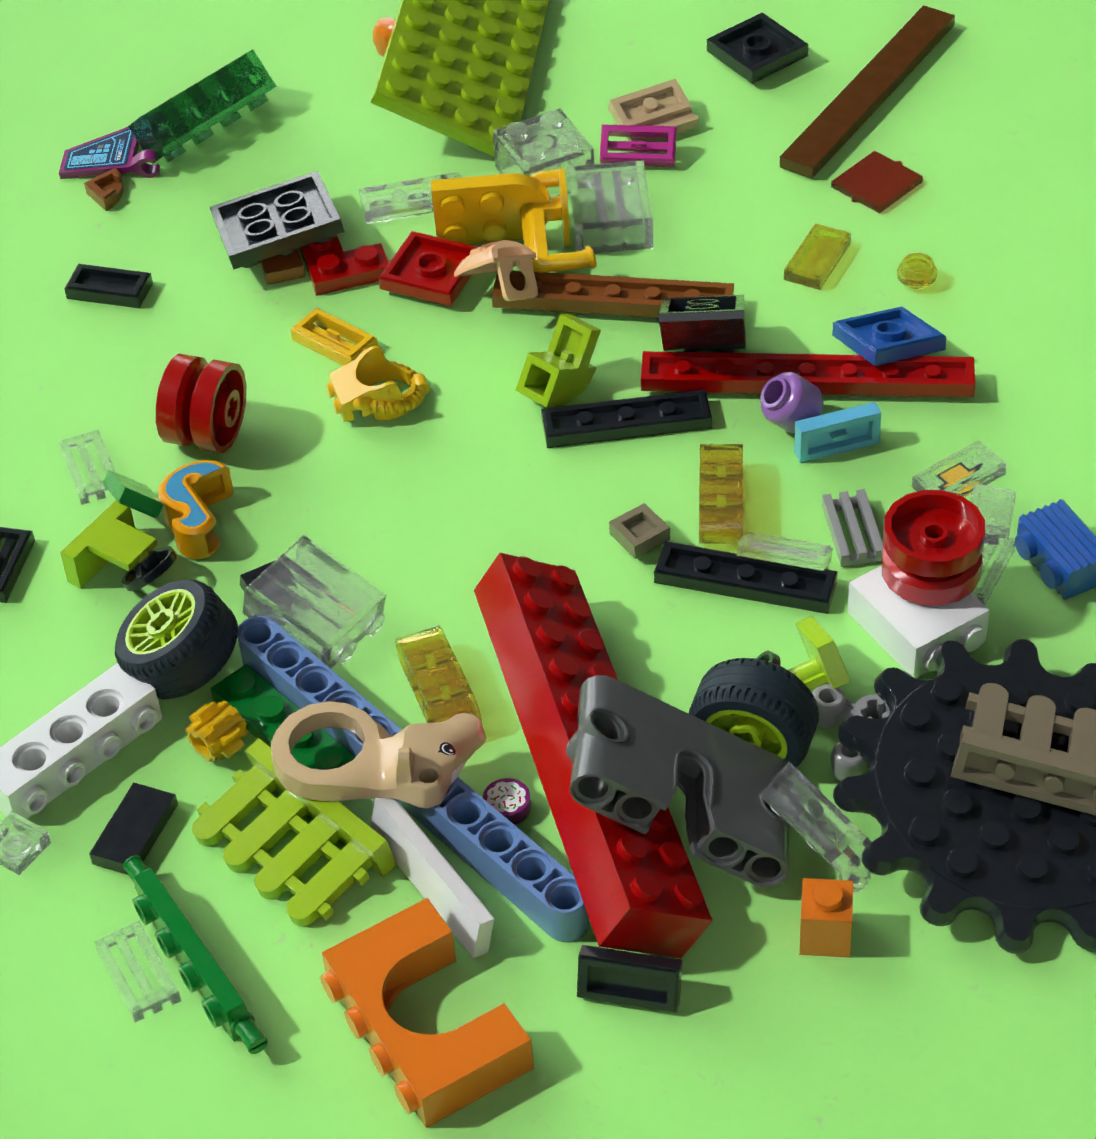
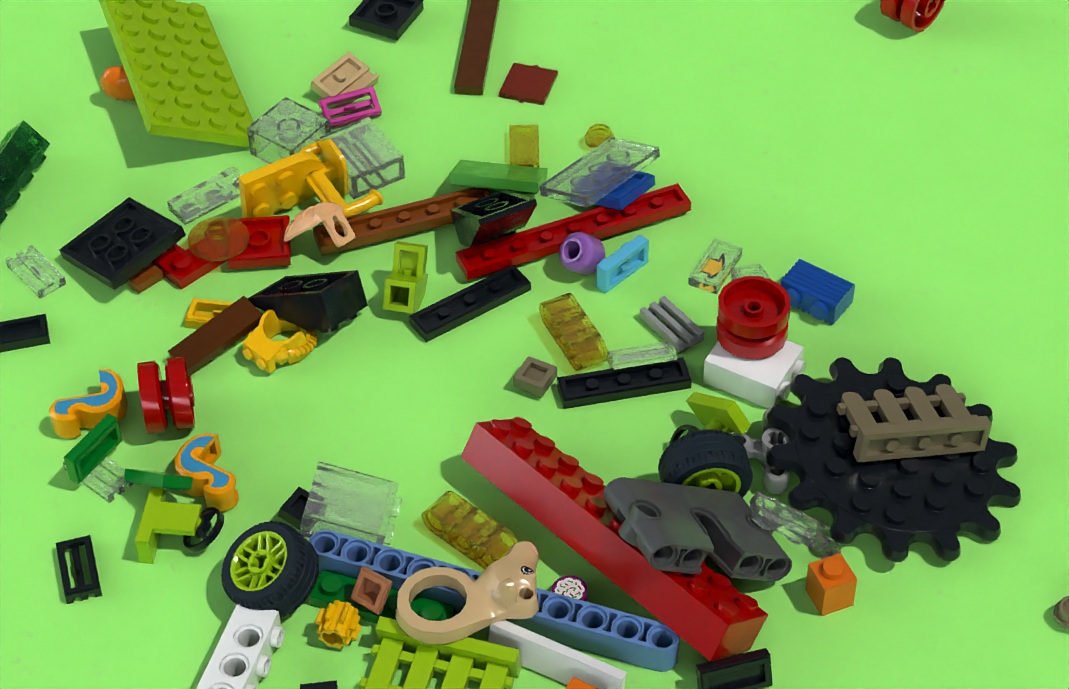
camera: 30 degrees left, 0 degrees up
(89, 435) = (93, 448): none -> green tile
(125, 396) = (88, 410): none -> light orange animal
(170, 207) = (43, 263): none -> clear tile
(270, 705) = (371, 590): none -> nougat slope
(307, 358) = (217, 334): none -> reddish brown tile
(384, 249) = (218, 238): none -> clear orange dish
(441, 353) = (314, 299): none -> black slope
(755, 279) = (498, 176): none -> bright green tile
(880, 311) = (599, 171): none -> clear tile

